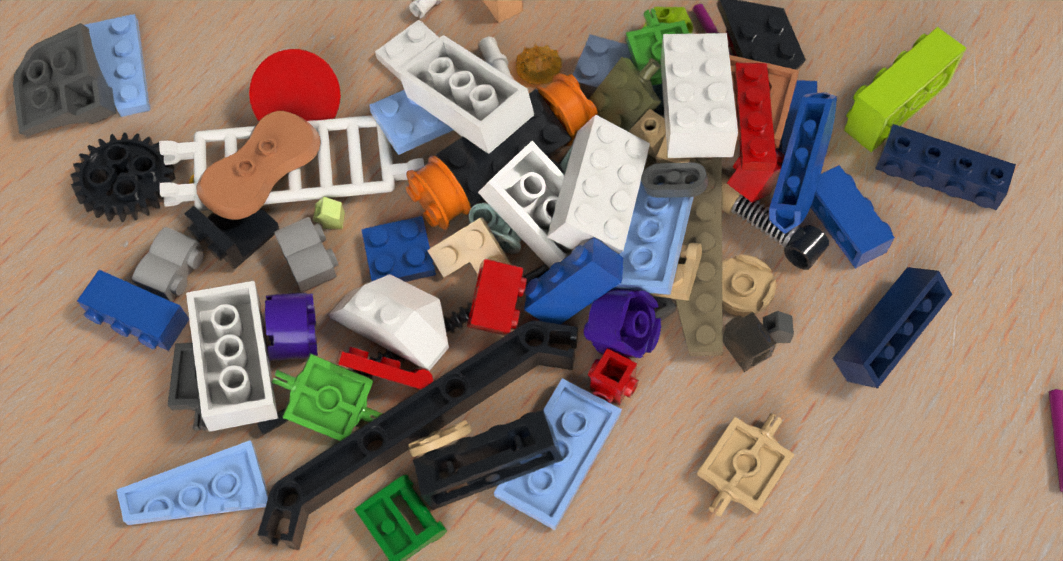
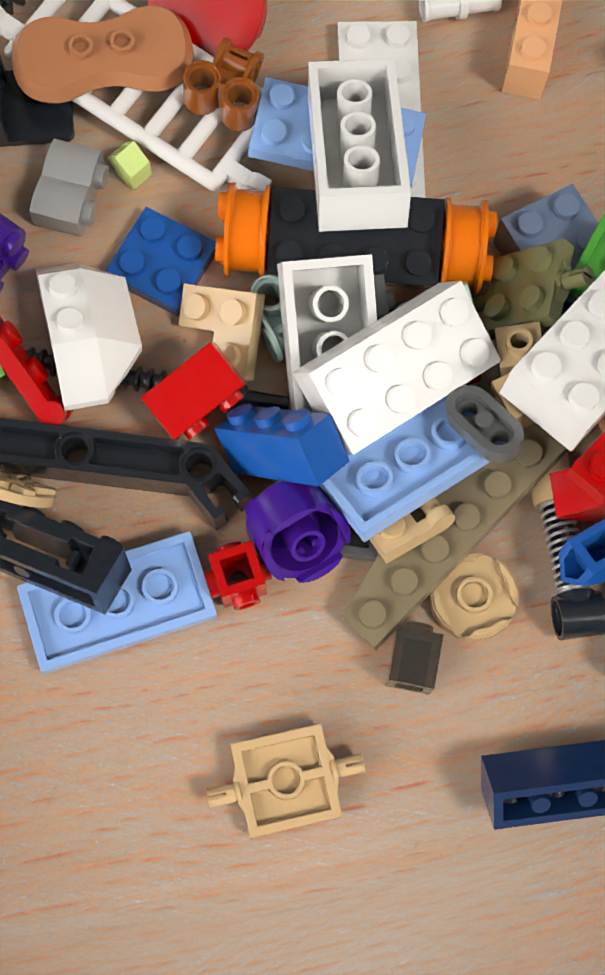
camera: 35 degrees right, 10 degrees up
(349, 123) = (229, 80): none -> dark orange piece
(493, 55) = (450, 137): white pin -> none
(529, 71) = (503, 187): clear yellow gear -> none
(779, 326) = (460, 672): dark grey piece -> none

